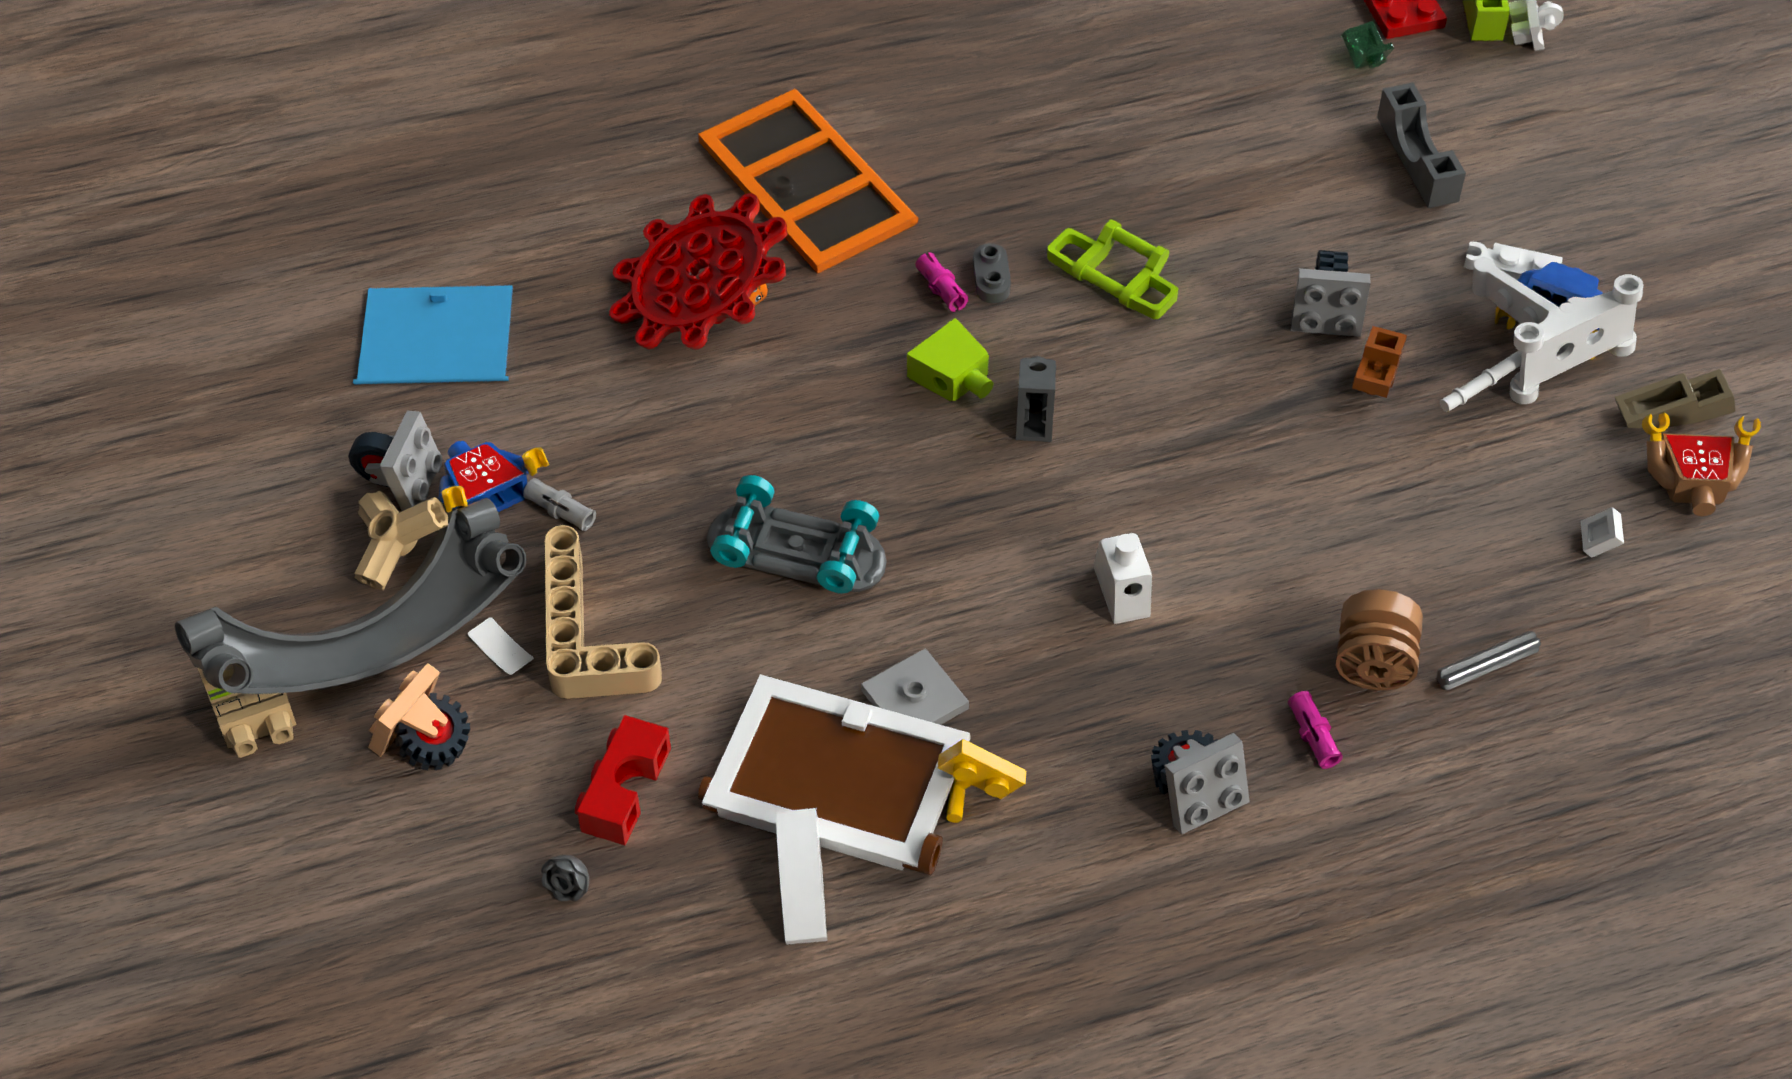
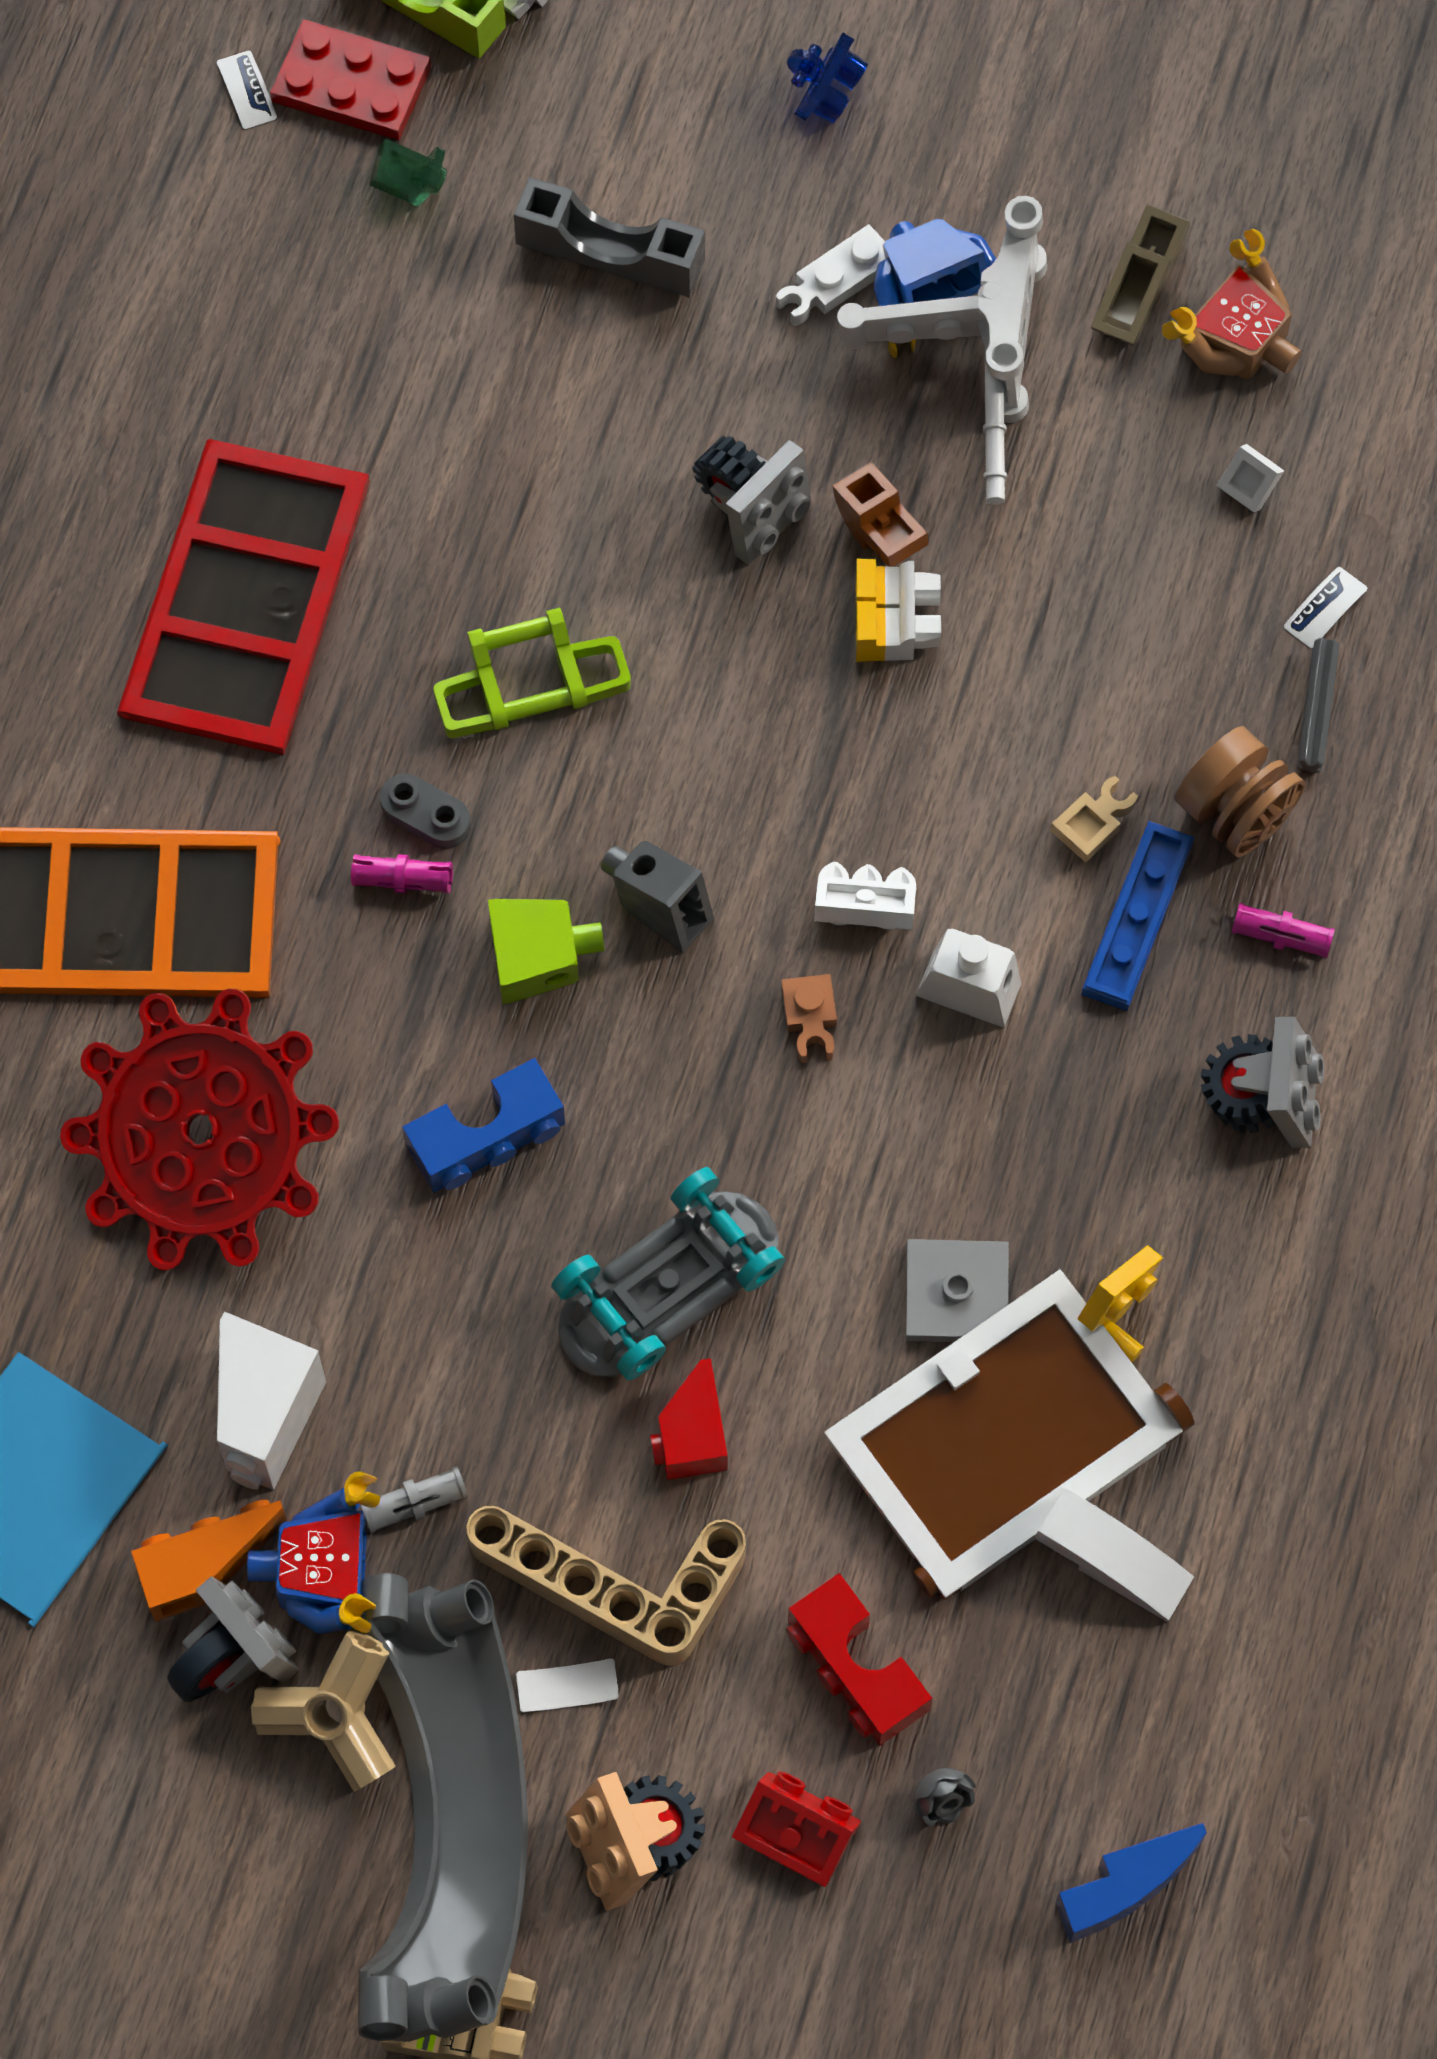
camera: 55 degrees left, 15 degrees up
(449, 422) = (214, 1547): none -> orange slope
(490, 810) = (796, 1826): none -> red bracket
(554, 391) = (263, 1399): none -> white slope
(582, 1017) = (1127, 1881): none -> blue slope
(712, 607) = (691, 1428): none -> red slope
(841, 416) = (452, 1152): none -> blue arch
(1032, 516) = (810, 1009): none -> nougat plate
(1046, 128) = (244, 596): none -> door
(1127, 501) = (865, 897): none -> white plate
(1252, 648) = (1137, 916): none -> blue tile
(1287, 585) = (1091, 823): none -> tan plate
(1324, 404) = (886, 611): none -> white hips
(1563, 627) = (1324, 606): none -> white sticker
(1631, 179) = (837, 64): none -> clear blue hips

